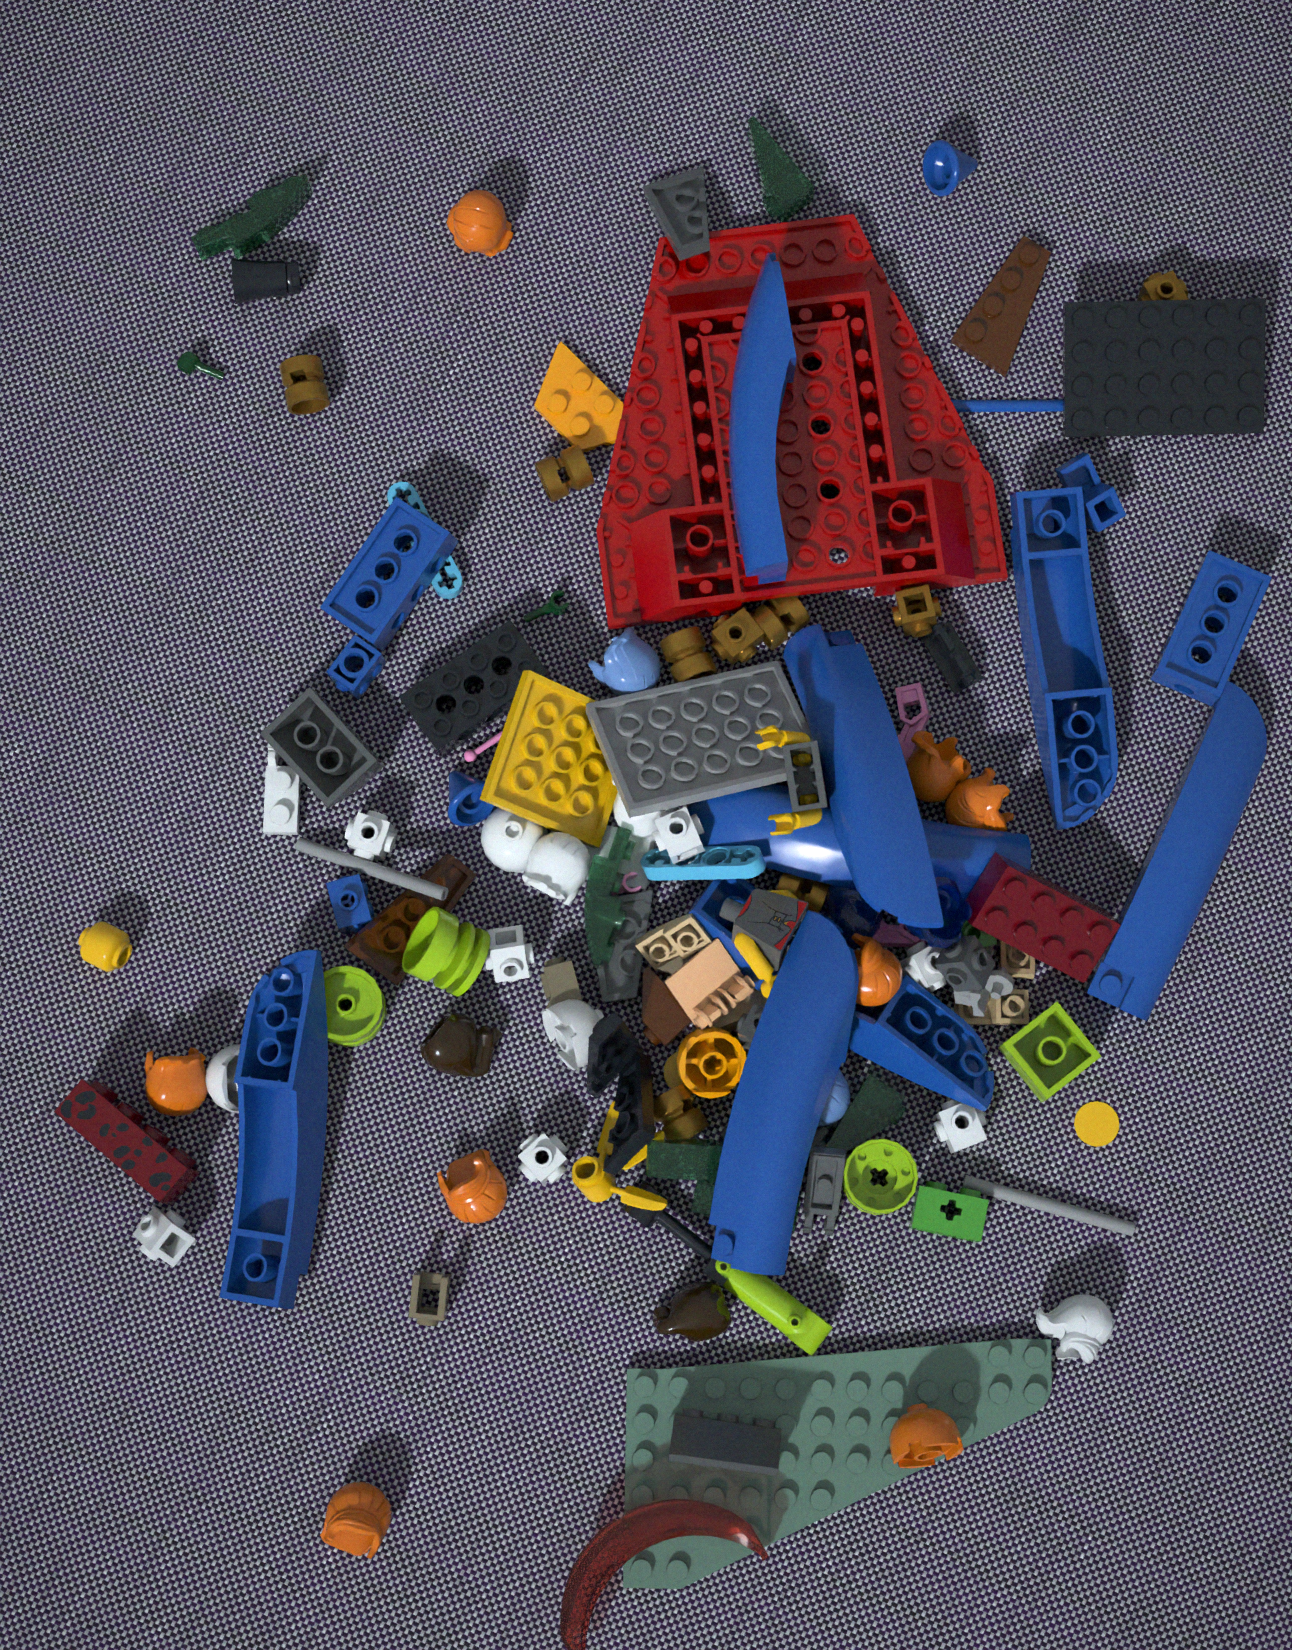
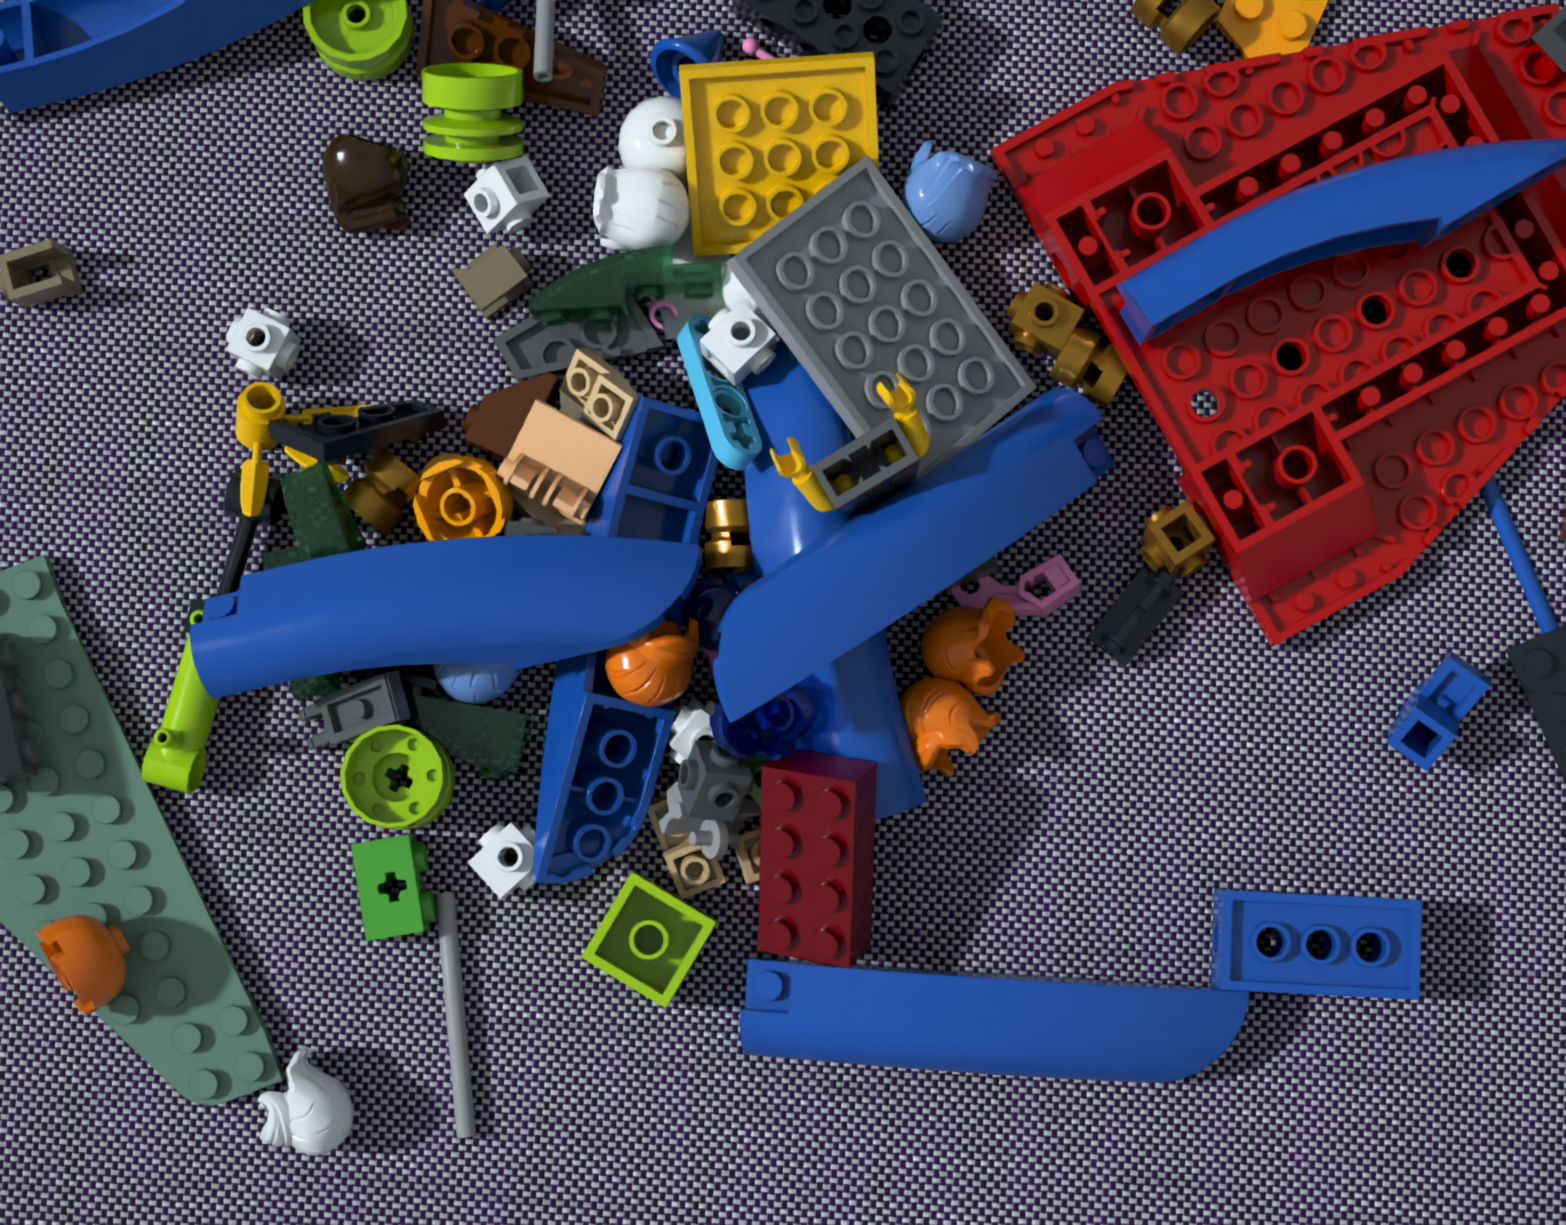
camera: 70 degrees right, 5 degrees up
(474, 1188) = (193, 273): orange hair -> none
(548, 608) = (987, 65): dark green hand -> none
(571, 1026) = (441, 321): white cylinder -> none
(609, 1051) = (425, 369): black wing -> none
(687, 655) = (998, 262): pearl gold wheel -> none
(695, 1312) = (137, 609): dark brown piece -> none
(765, 929) = (655, 500): dark grey torso -> none
(1063, 652) = (1200, 757): blue slope -> none
(1096, 1123) = (587, 1038): yellow sticker -> none

